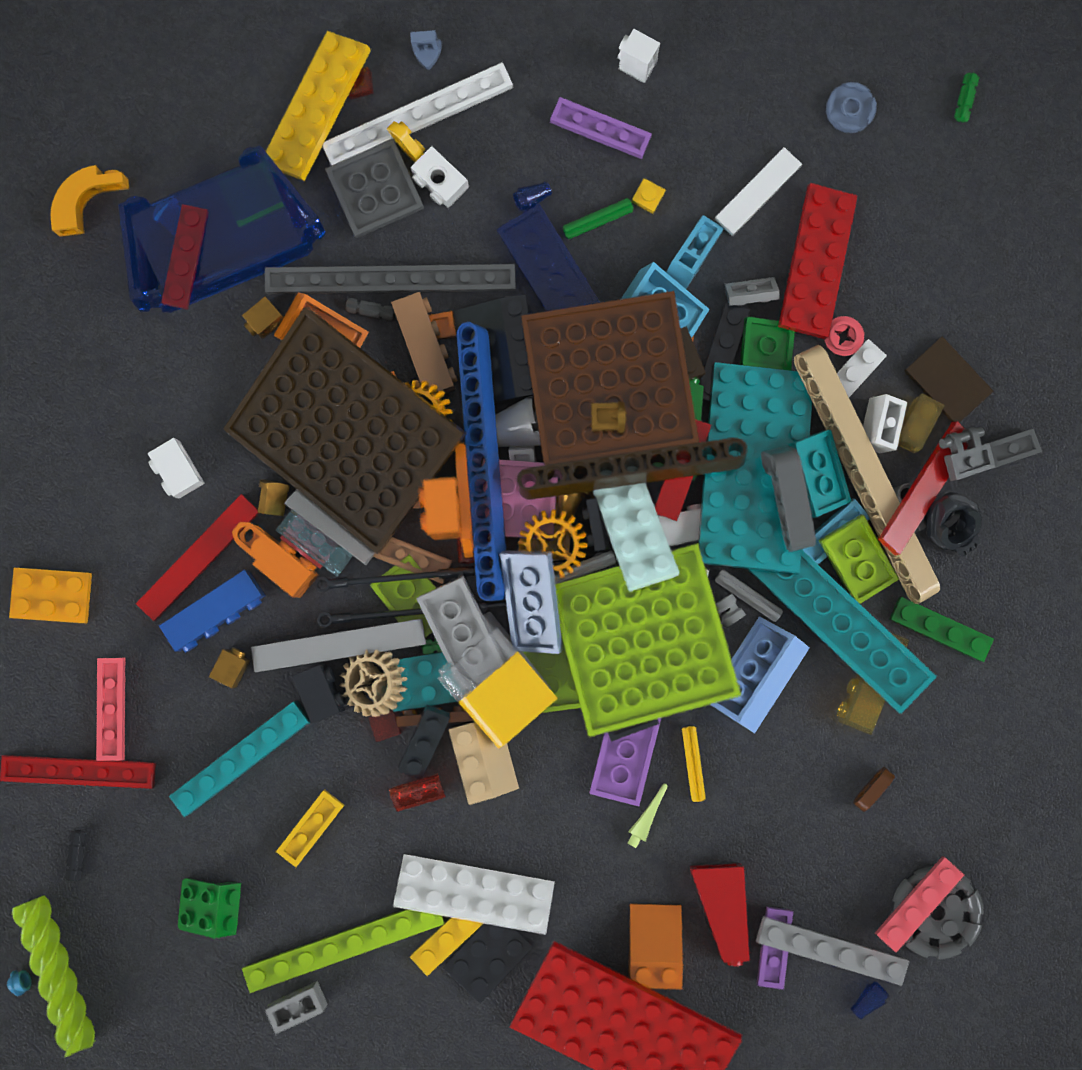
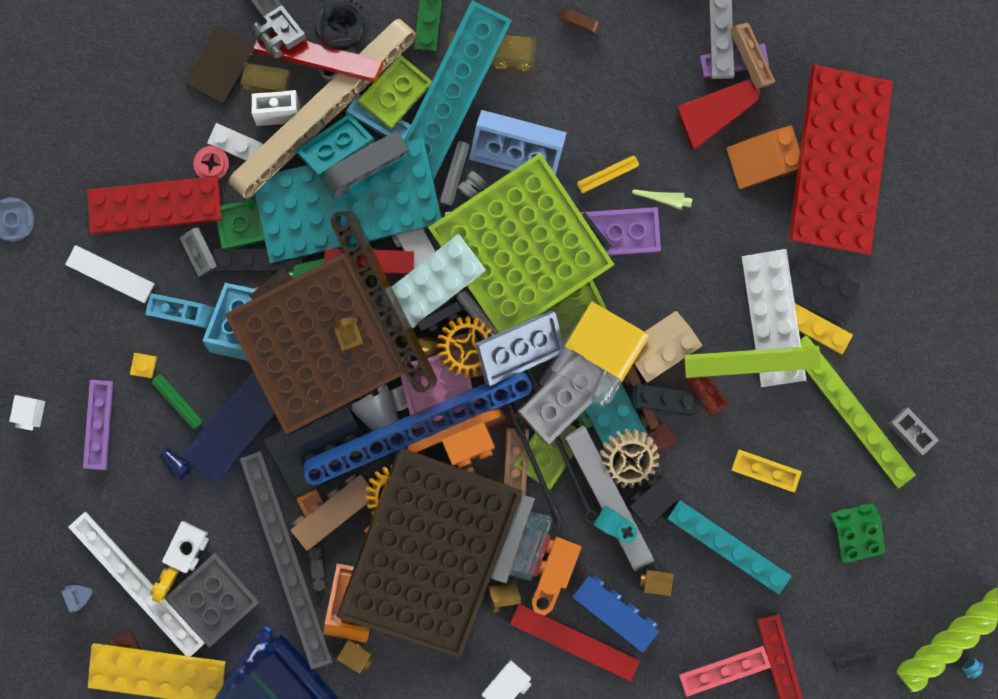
camera: 110 degrees left, 0 degrees up
(306, 639) = (613, 522): none -> teal piece
(432, 855) = (752, 361): none -> lime tile
(774, 971) = (752, 55): none -> medium nougat plate

